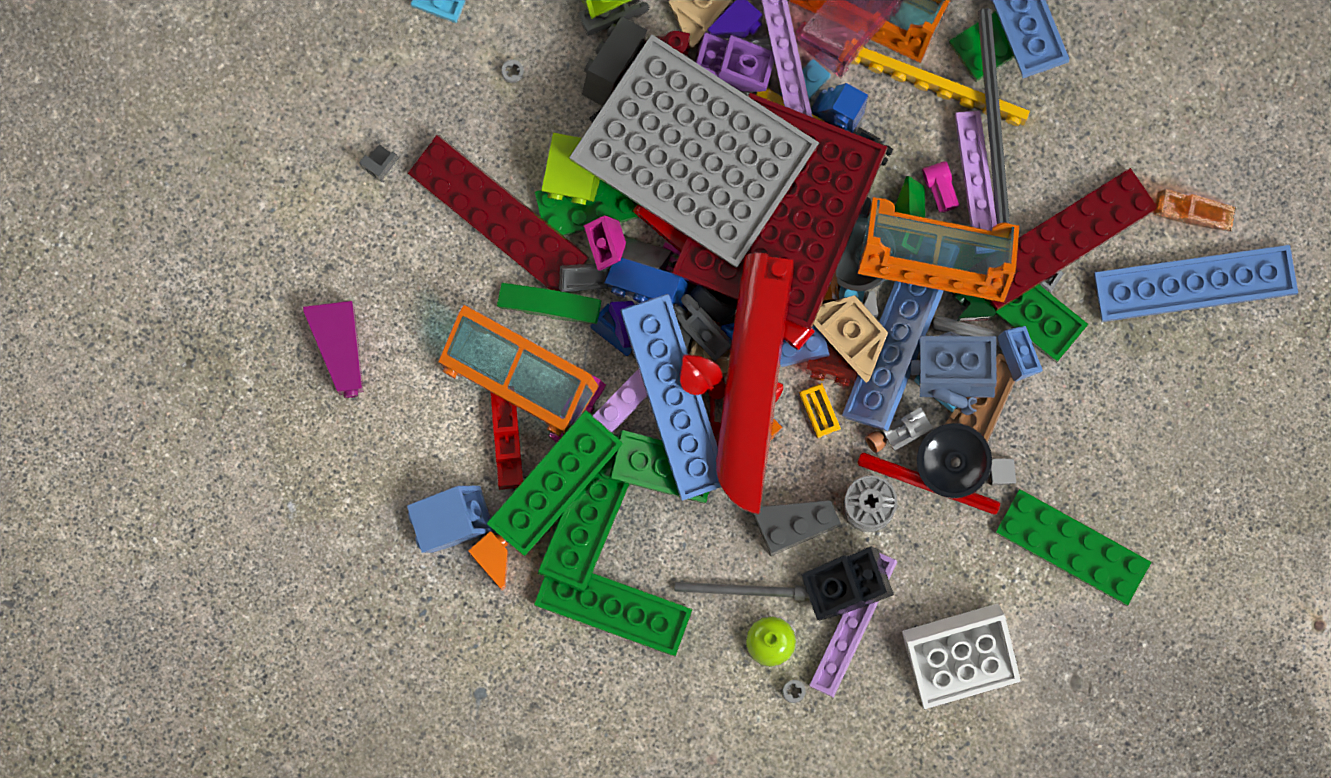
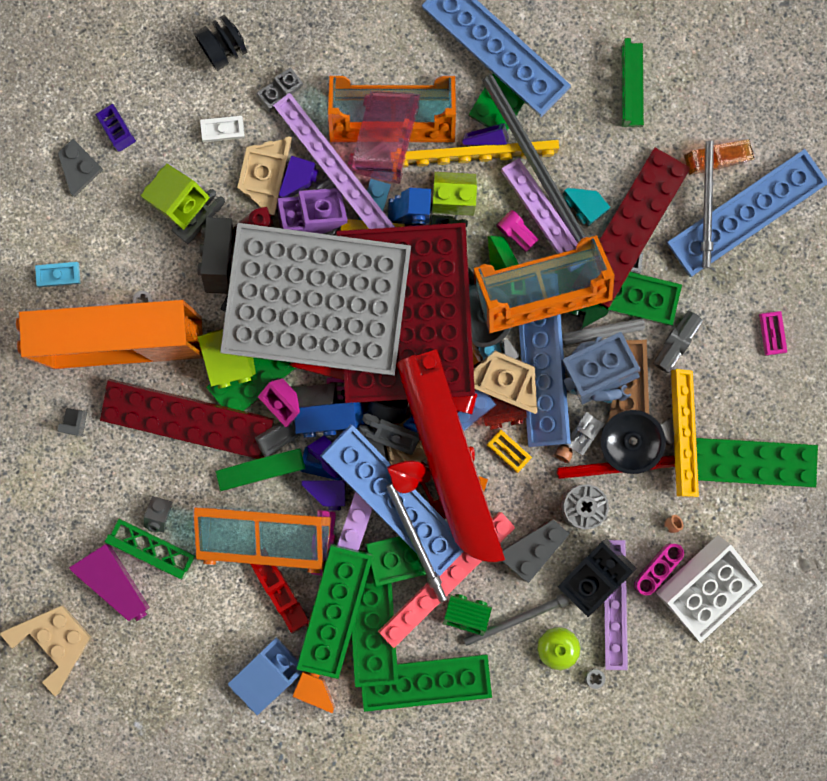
camera: 30 degrees left, 5 degrees up
(255, 375) = (58, 636): none -> tan wing
(386, 334) = (148, 557): none -> green fence
(419, 298) = (157, 514): none -> dark grey bracket
(468, 87) = (110, 334): none -> orange panel
(608, 360) = (328, 493): none -> dark purple slope
(674, 500) = (433, 579): none -> flat silver bar
(675, 514) = (426, 600): none -> coral plate
(691, 557) = (467, 614): none -> green brick
(892, 115) = (454, 193): none -> lime slope
(926, 600) = (668, 564): none -> dark pink beam
(957, 570) = (674, 524): none -> nougat hinge
(961, 73) = (487, 136): none -> dark purple slope
(1014, 479) = (684, 433): none -> yellow plate
(1019, 353) = (641, 333): medium blue slope -> none
(1029, 193) = (586, 203): none -> teal slope
(1055, 382) = (678, 341): none -> dark grey piece
(1134, 295) = (707, 245): none -> flat silver bar
(1139, 91) = (632, 84): none -> green fence
(1155, 443) = (766, 344): none -> dark pink tile

